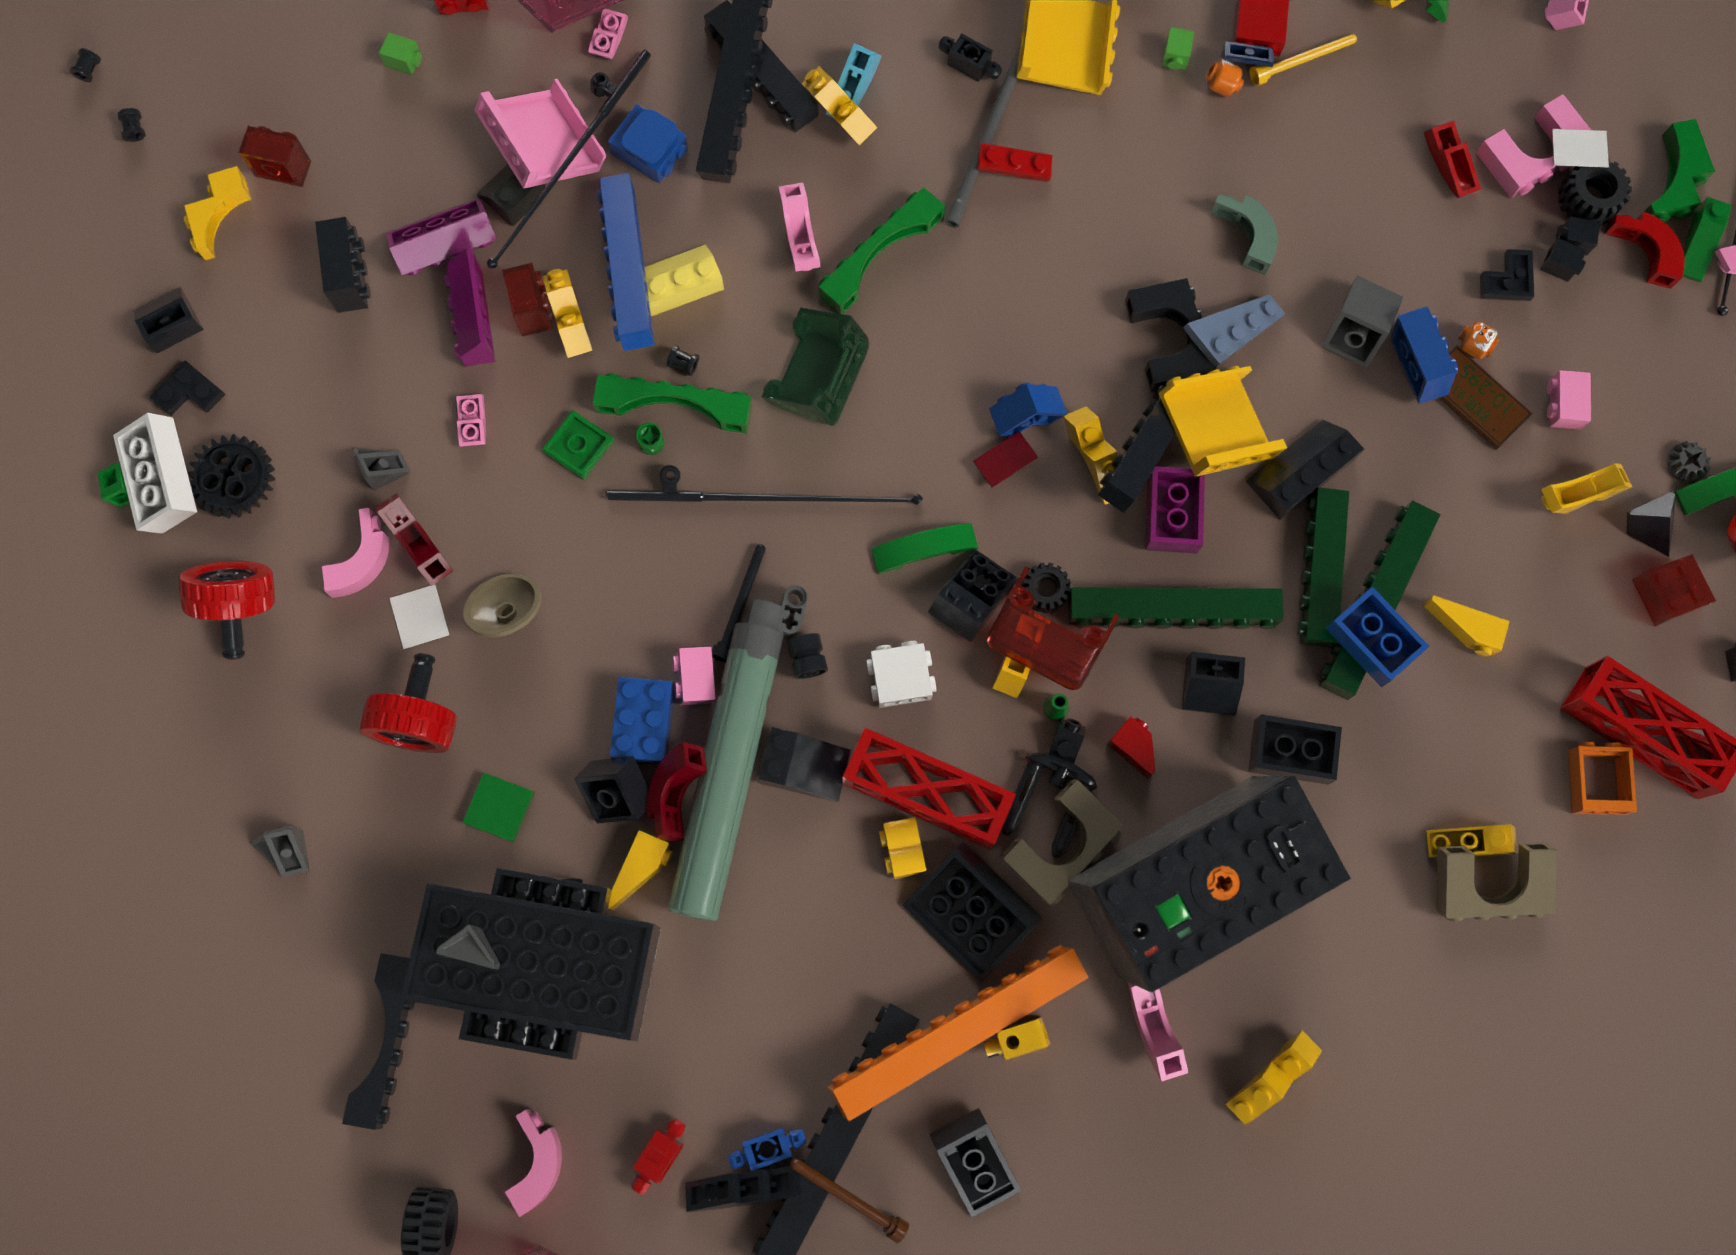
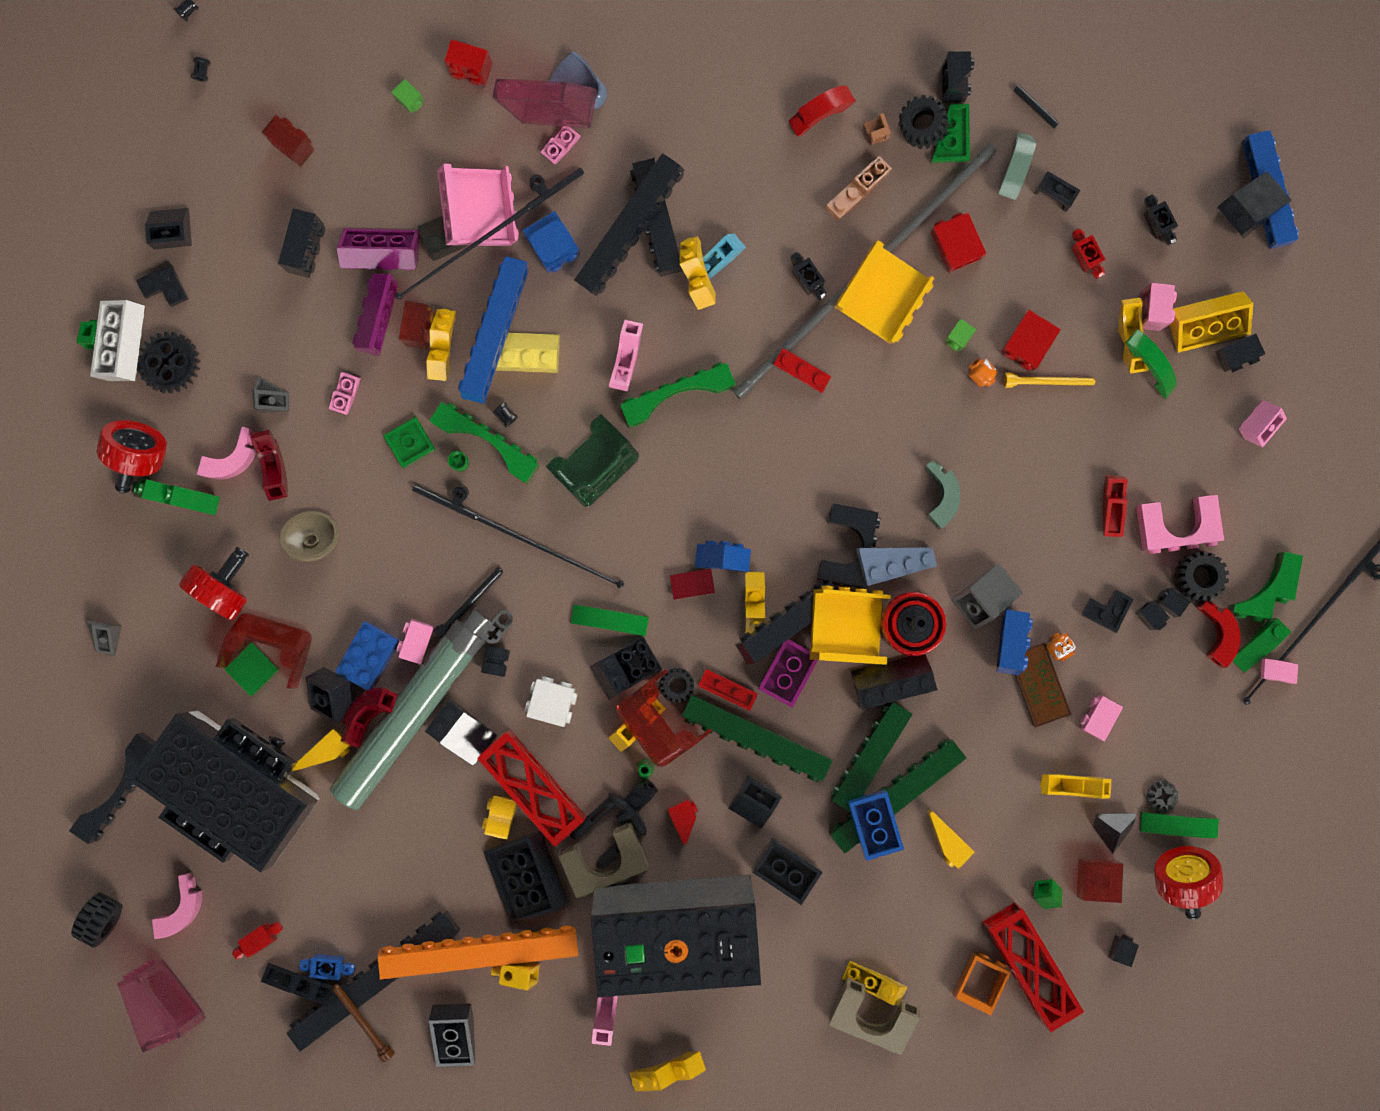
camera: 25 degrees right, 10 degrees up
(227, 191) = (221, 164): yellow arch -> none
(306, 629) = (175, 496): none -> green arch
(419, 616) = (254, 515): white sticker -> none
(470, 946) = (184, 772): dark grey slope -> none
(539, 745) = (292, 640): none -> clear red windscreen
(1111, 565) = (728, 690): none -> red plate
(1248, 53) = (1006, 364): dark blue slope -> none
(1293, 388) = (913, 623): none -> red wheel
(1580, 148) = (1206, 541): white sticker -> none
(1621, 635) = (1048, 894): none -> green panel

